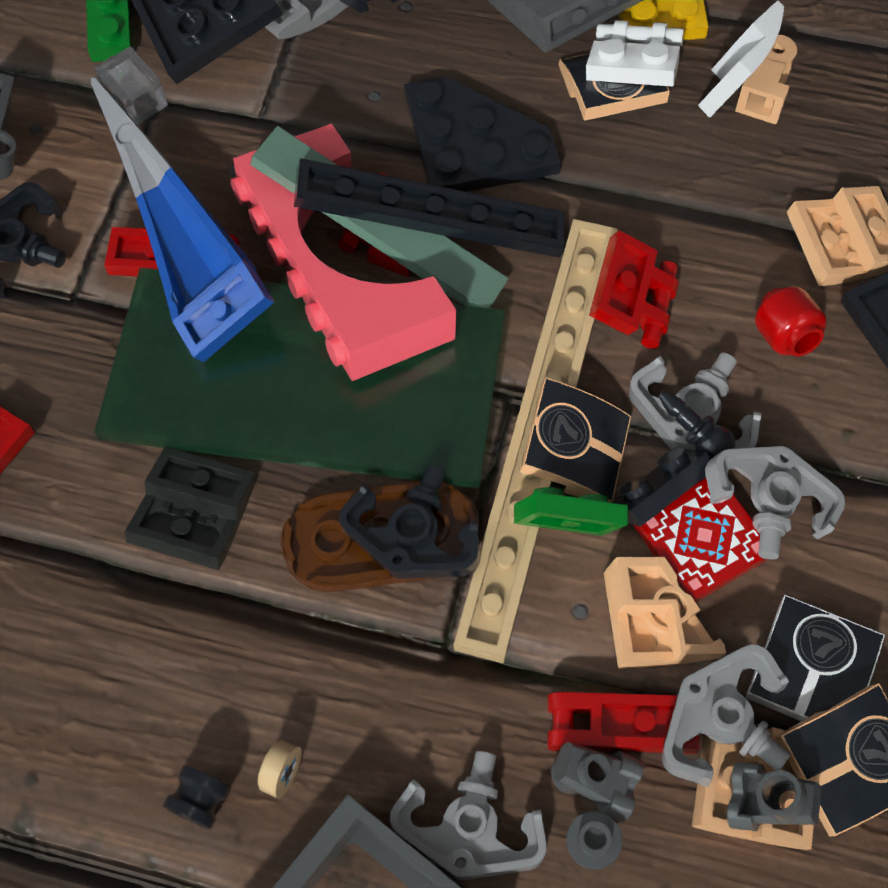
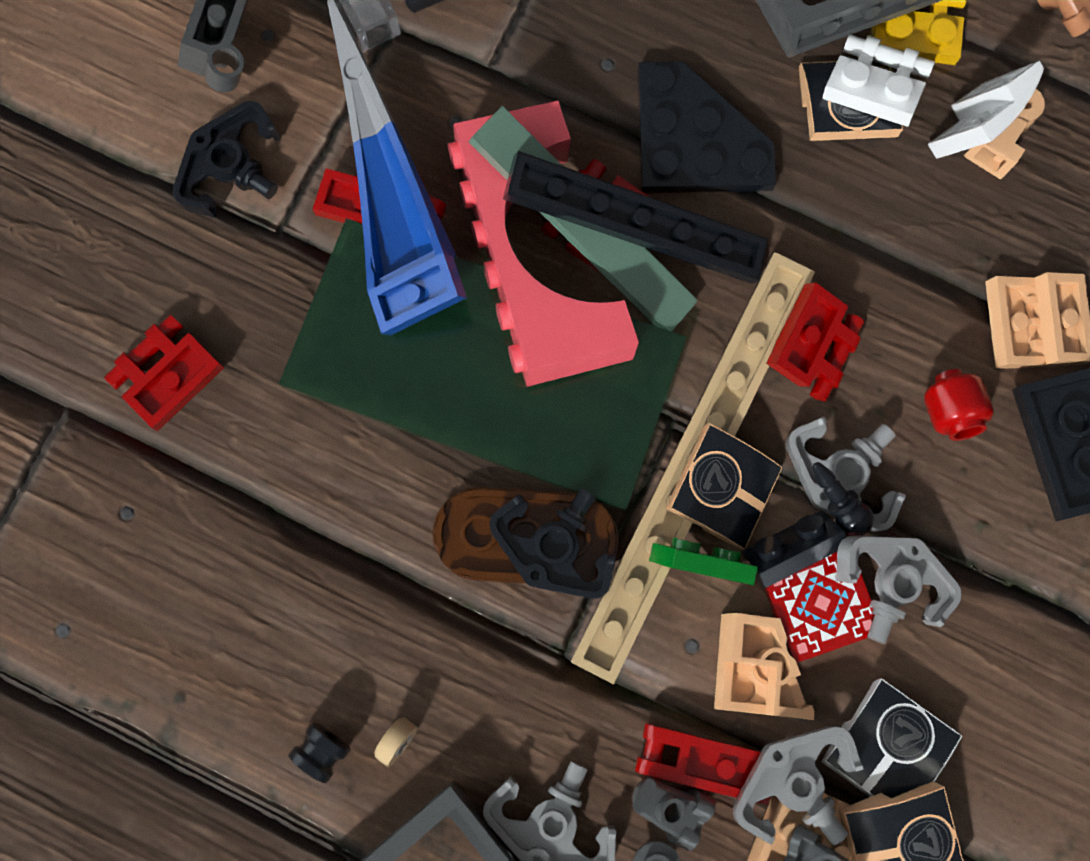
camera: 10 degrees right, 15 degrees up
(191, 508) = (357, 473): pearl dark grey slope -> none

